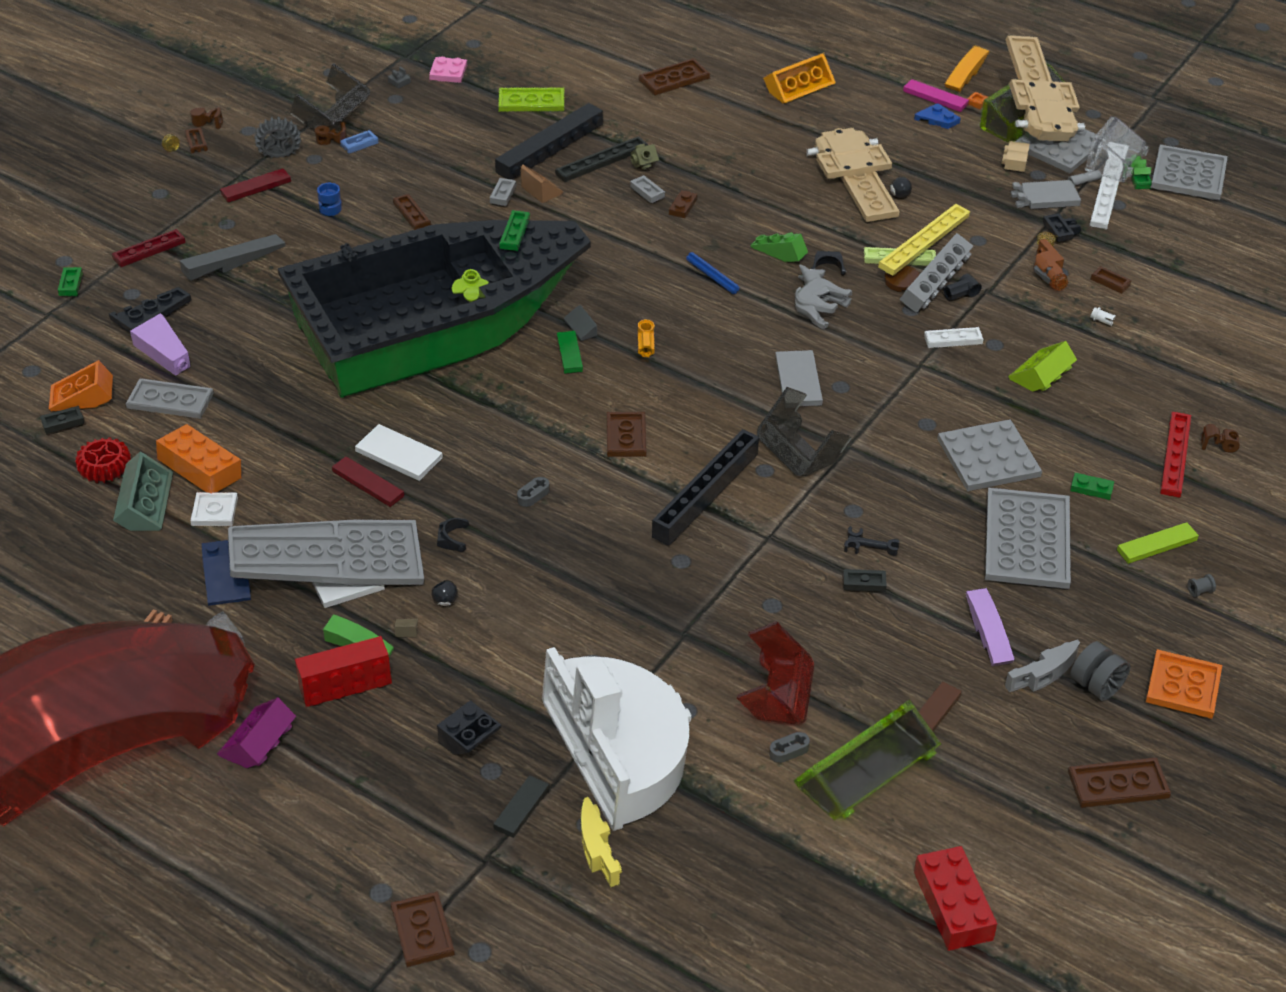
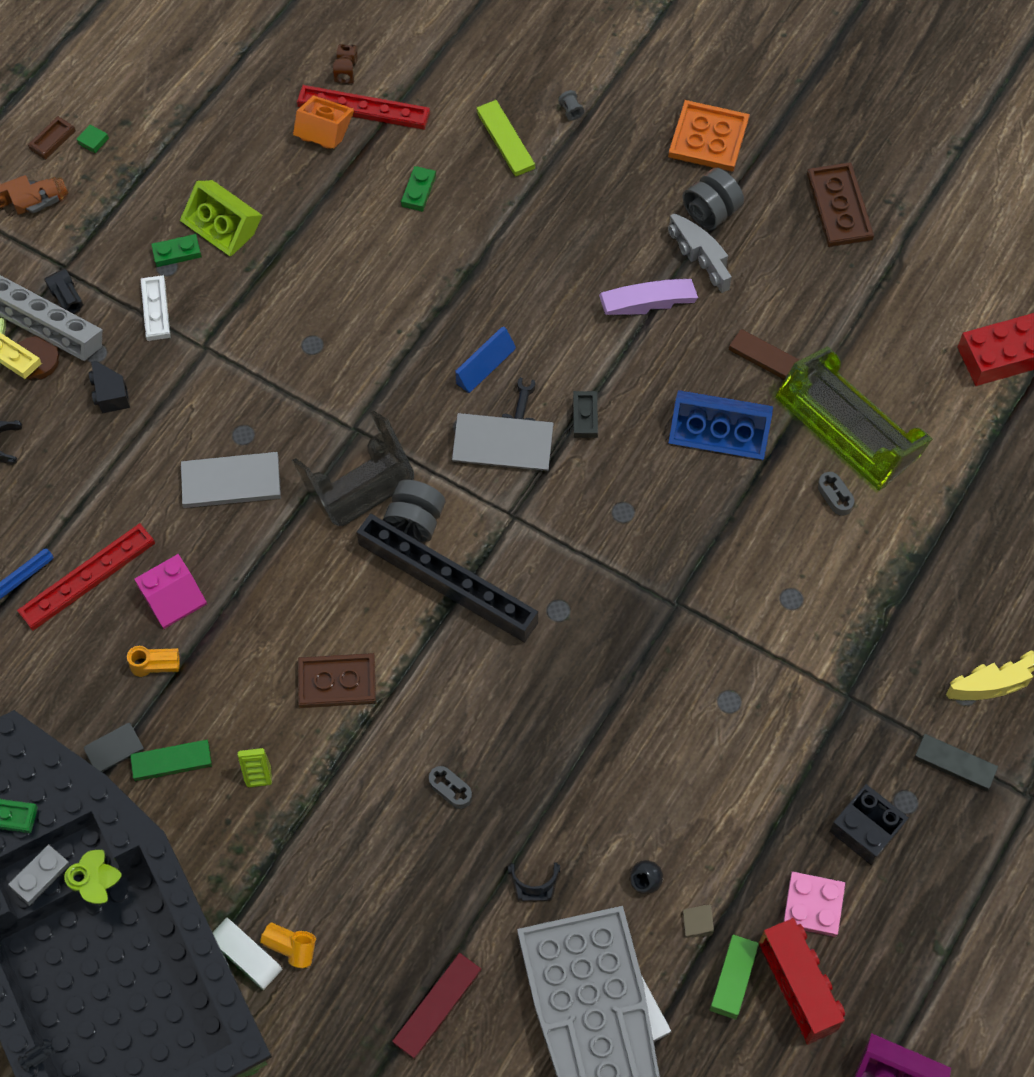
camera: 90 degrees left, 20 degrees up
(398, 452) = (377, 971): white tile -> none
(409, 699) = (815, 903): none -> bright pink plate
(421, 385) = (246, 954): none -> white beam
(422, 405) = (295, 945): none -> light orange piece
(474, 260) = (38, 875): none -> light grey plate
(555, 388) = (255, 767): none -> lime slope
(628, 724) = (860, 641): white piece -> none
(702, 345) = (170, 591): none -> dark pink slope
(718, 309) = (86, 577): none -> red tile
(764, 466) = (415, 509): none -> dark grey wheel
(789, 680) = (756, 496): clear red windscreen -> none
(814, 294) = (67, 458): light grey animal -> none
(834, 527) = (503, 442): none -> light grey tile
(858, 667) = (720, 424): none -> blue slope
(875, 311) = (110, 388): none -> black slope
(916, 519) = (485, 360): none -> blue slope
(989, 455) = (369, 283): light grey plate -> none
(1009, 347) = (176, 250): none -> green plate
(1028, 538) = (507, 253): light grey plate -> none
(1100, 315) = (123, 154): white pin -> none
(1113, 300) = (92, 138): none -> green tile
(1150, 422) = (322, 122): none -> orange slope

